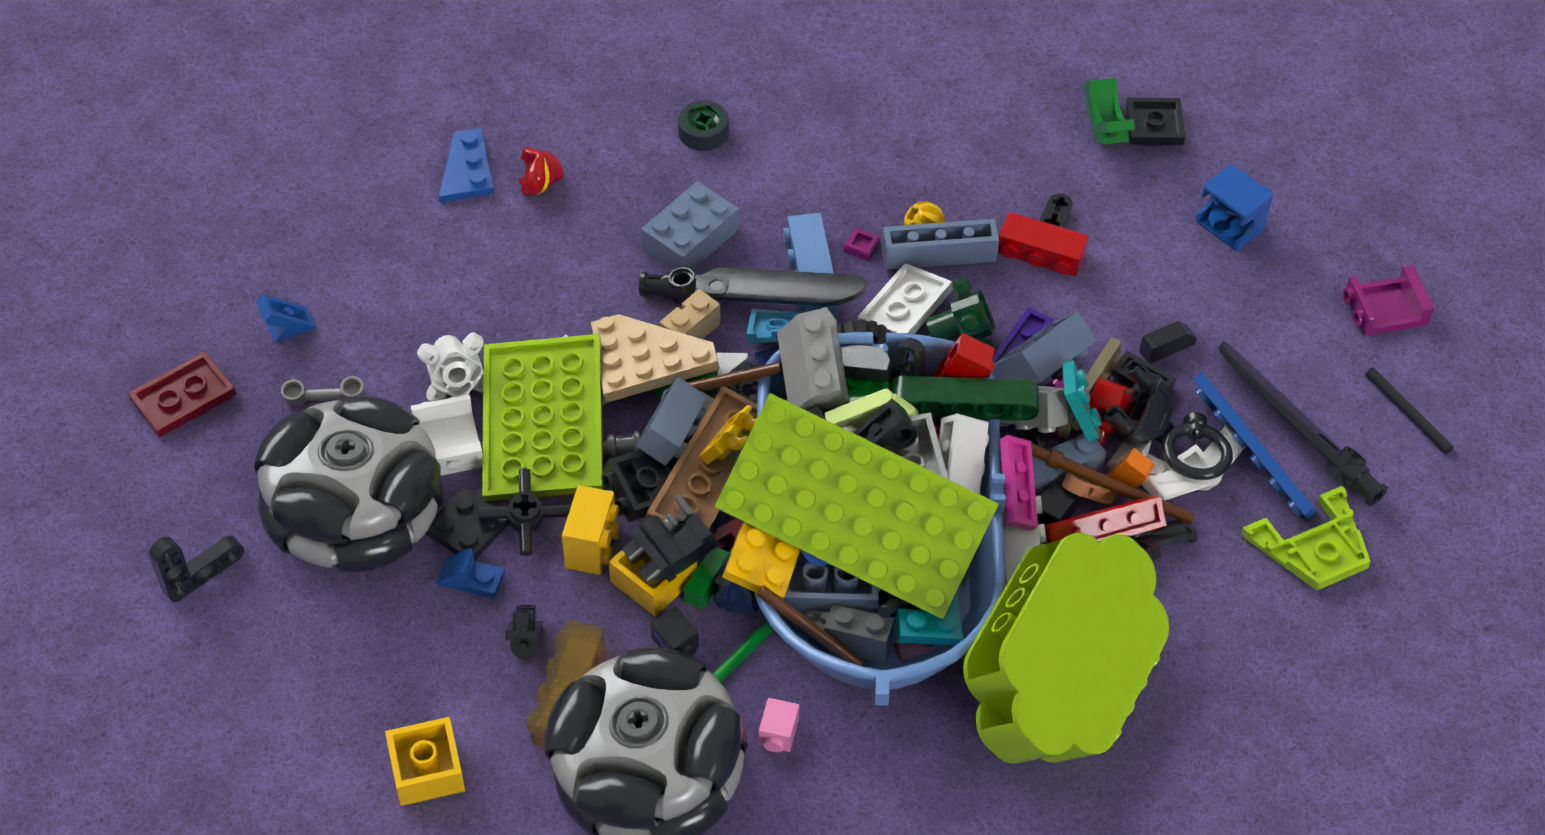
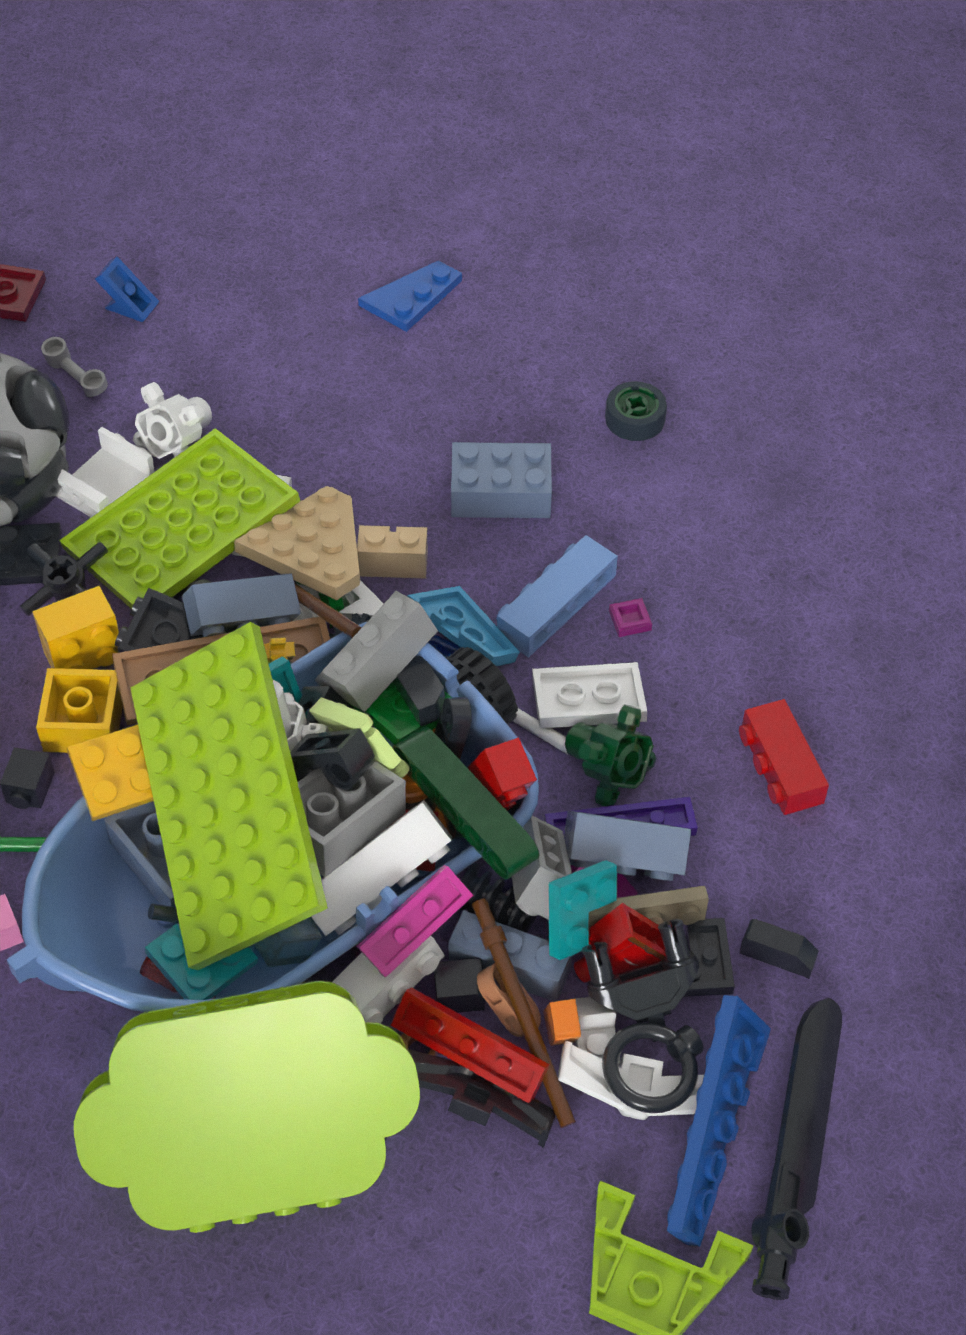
camera: 50 degrees right, 0 degrees up
(540, 171) = (452, 338): red hair -> none
(670, 552) = (90, 691): black hips -> none
(756, 286) = (481, 570): black piece -> none
(807, 626) = (90, 866): reddish brown bar -> none
(858, 630) = (127, 907): dark grey hinge -> none
(924, 213) = (701, 642): yellow piece -> none
(940, 244) = (685, 672): sand blue brick -> none
(1062, 217) = (836, 743): black beam -> none
(1409, 410) = (936, 1251): black bar -> none

